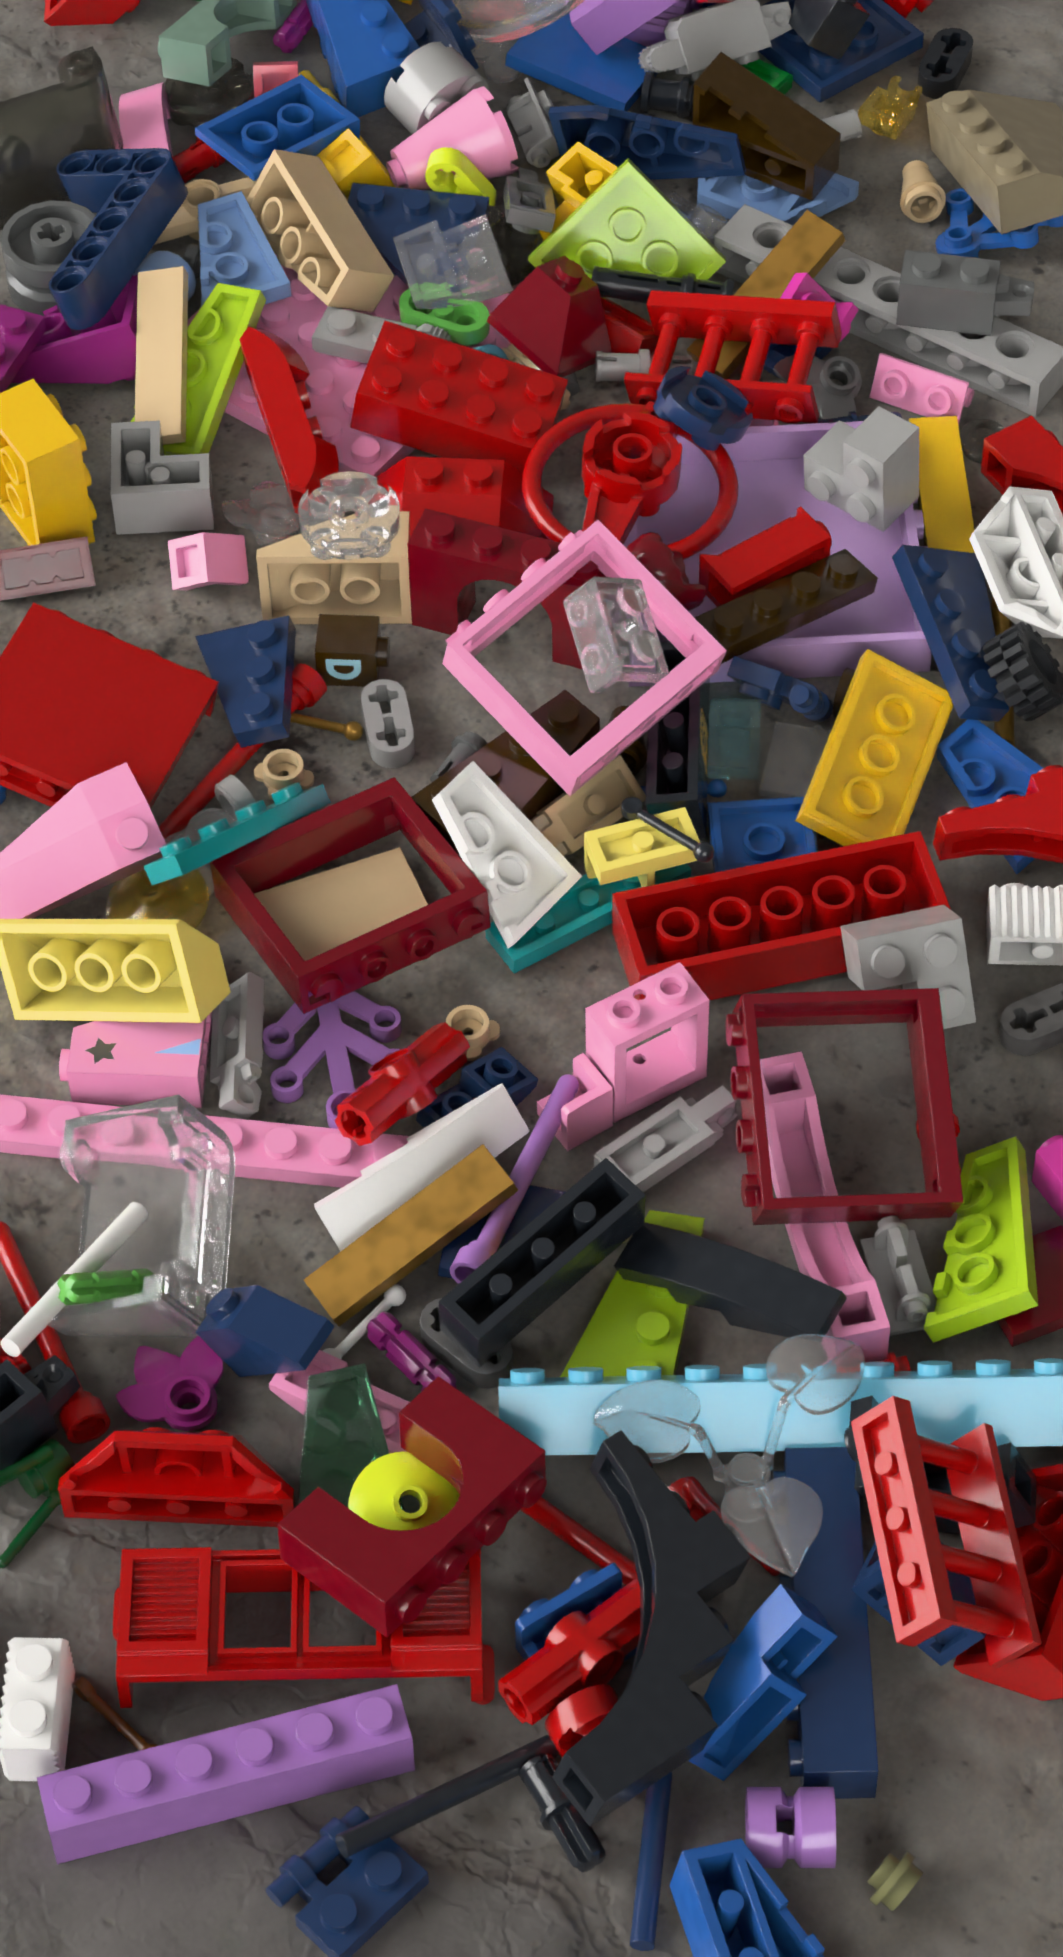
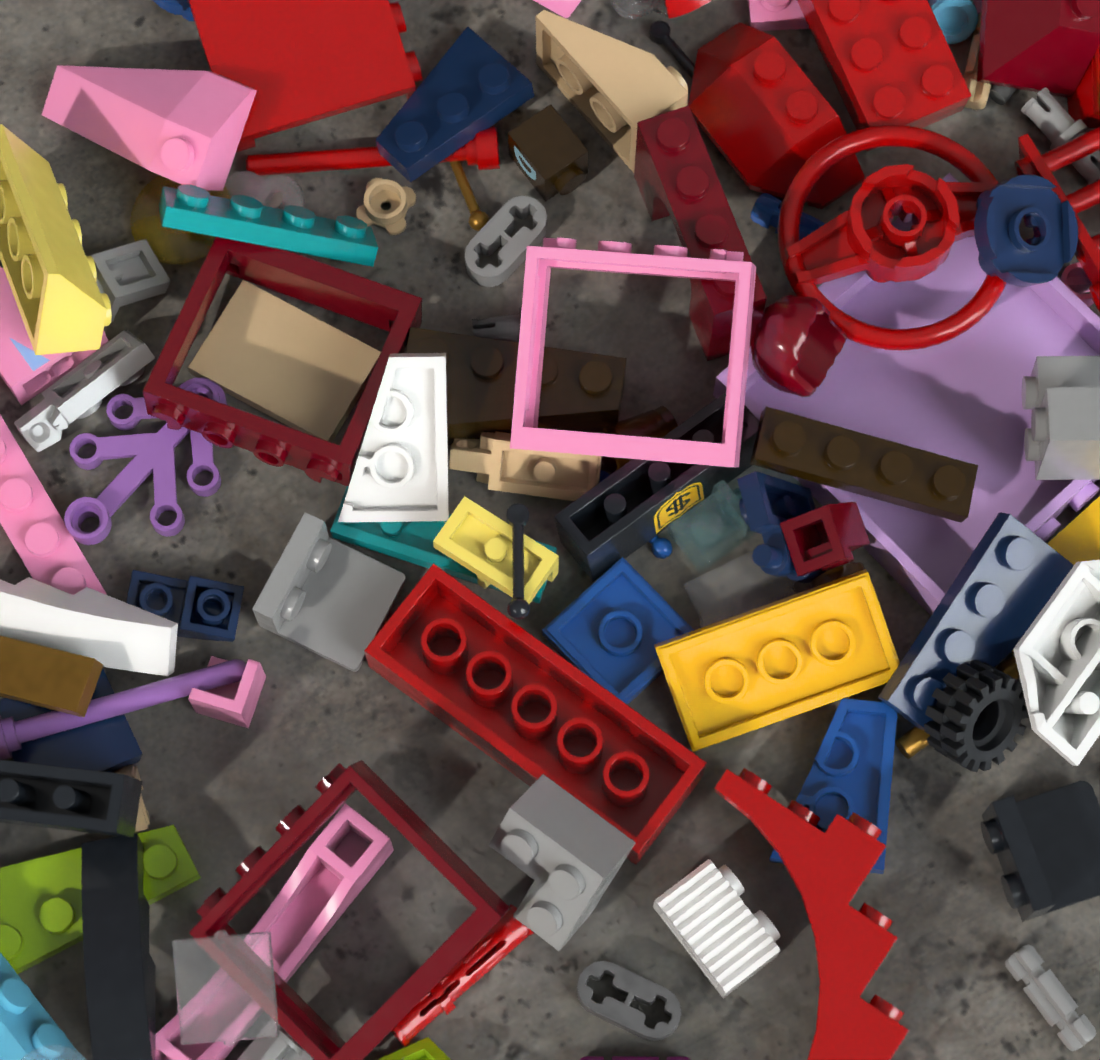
camera: 50 degrees right, 20 degrees up
(232, 795) = (324, 192): light grey tile -> none
(349, 538) = (628, 83): clear plate -> none
(402, 1084) = (132, 543): red piece -> none
(476, 1021) = (231, 537): tan plate -> none
(552, 994) = (327, 595): none -> light grey bracket
(614, 633) = (655, 370): clear bracket -> none
(662, 1063) = (324, 715): bright pink window -> none
(670, 1138) = (241, 784): light grey hinge -> none
(764, 557) = (903, 413): red window -> none
(817, 658) = (824, 537): none -> dark red brick
(828, 1214) = (225, 988): none -> clear piece

